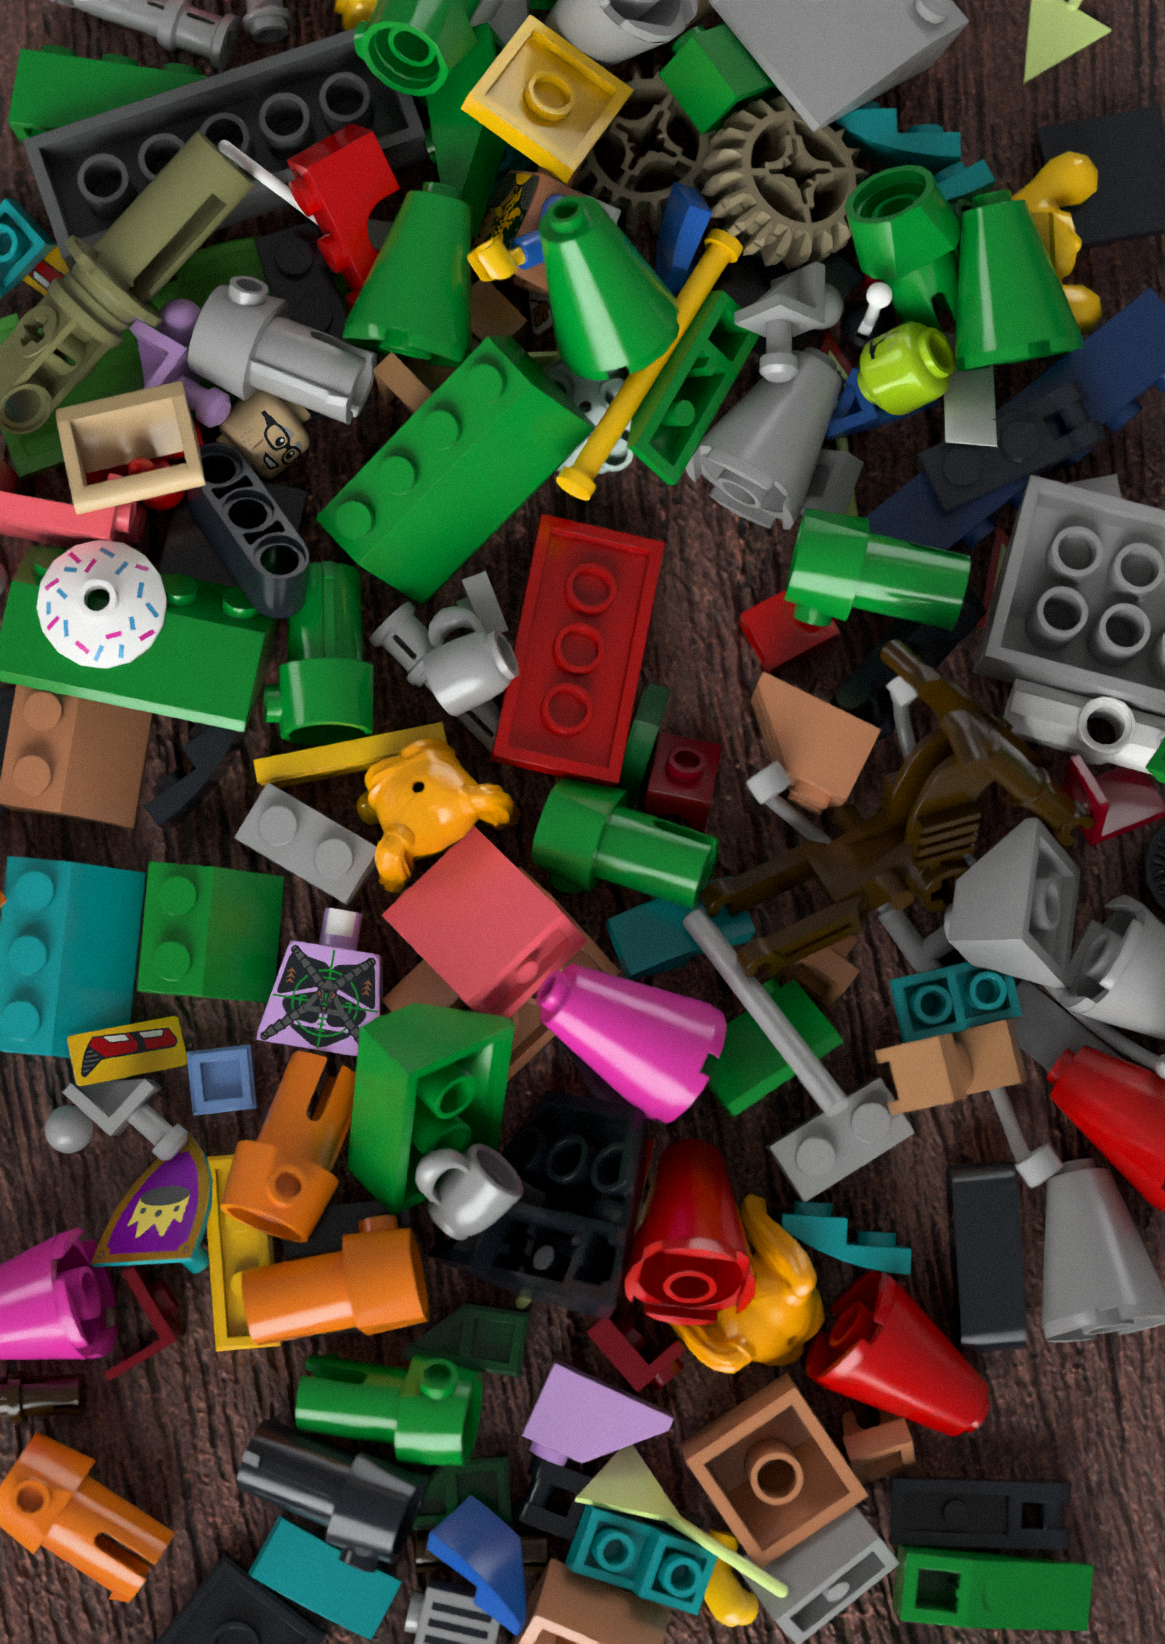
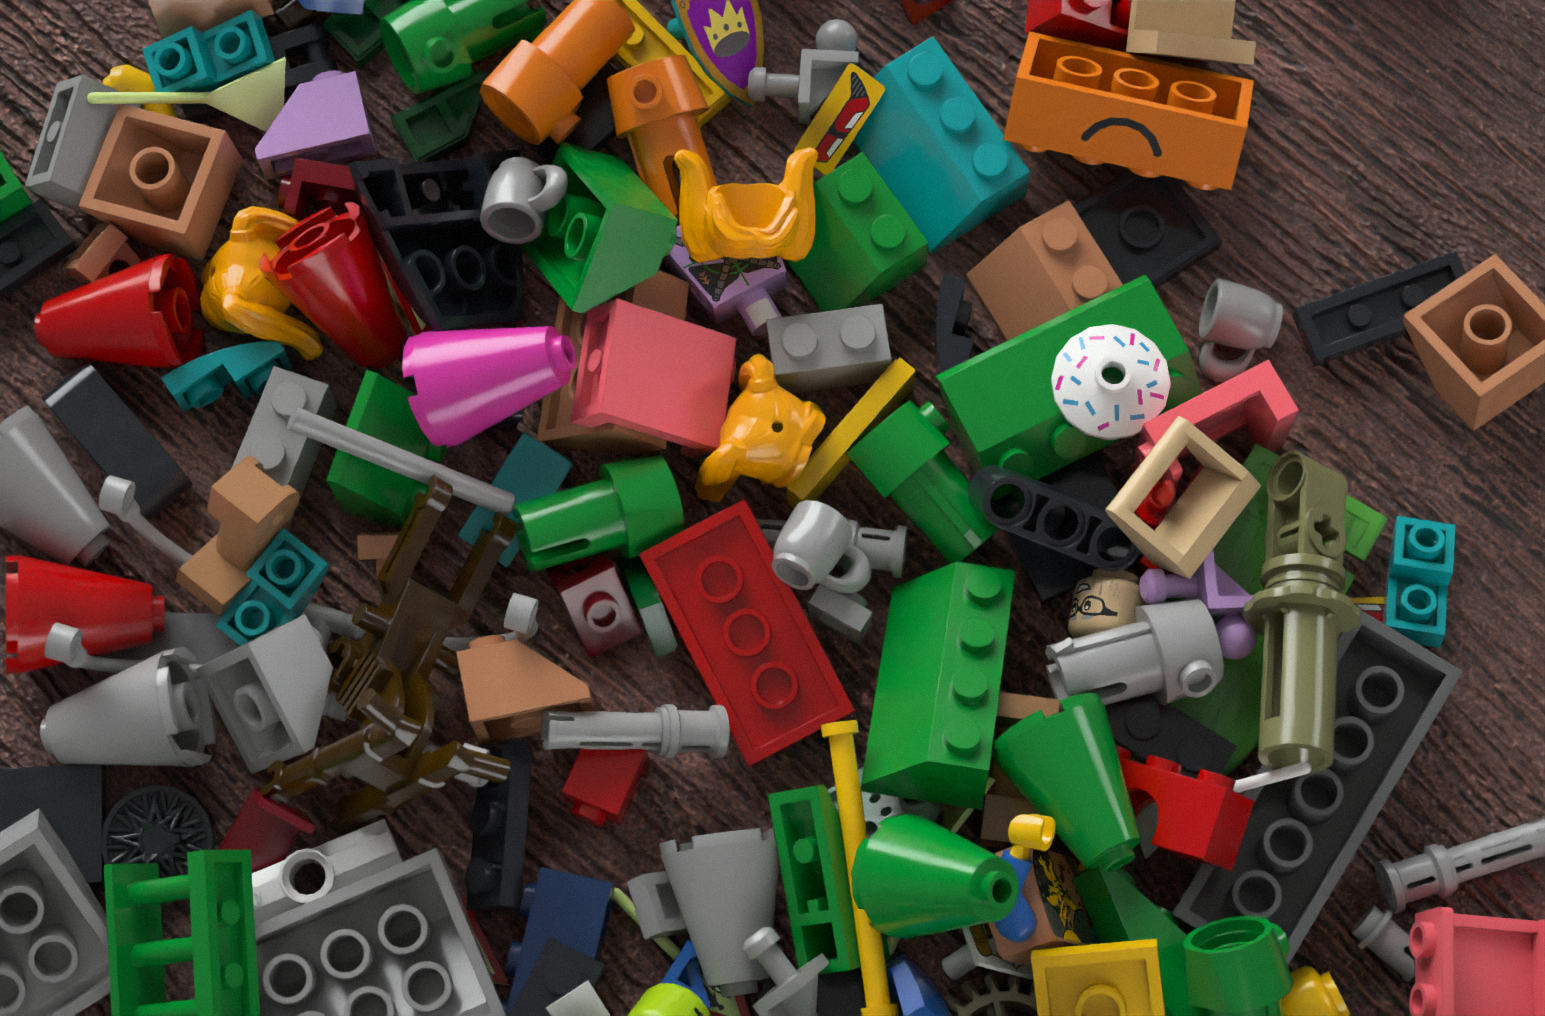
camera: 145 degrees right, 10 degrees down
(60, 88) = (1458, 750): green slope -> none
(222, 1079) = (757, 154): medium blue tile -> none
(289, 1002) = (747, 218): none -> light orange hair
(716, 614) = (663, 731): none -> light grey pin
(846, 567) = (588, 830): green piece -> none

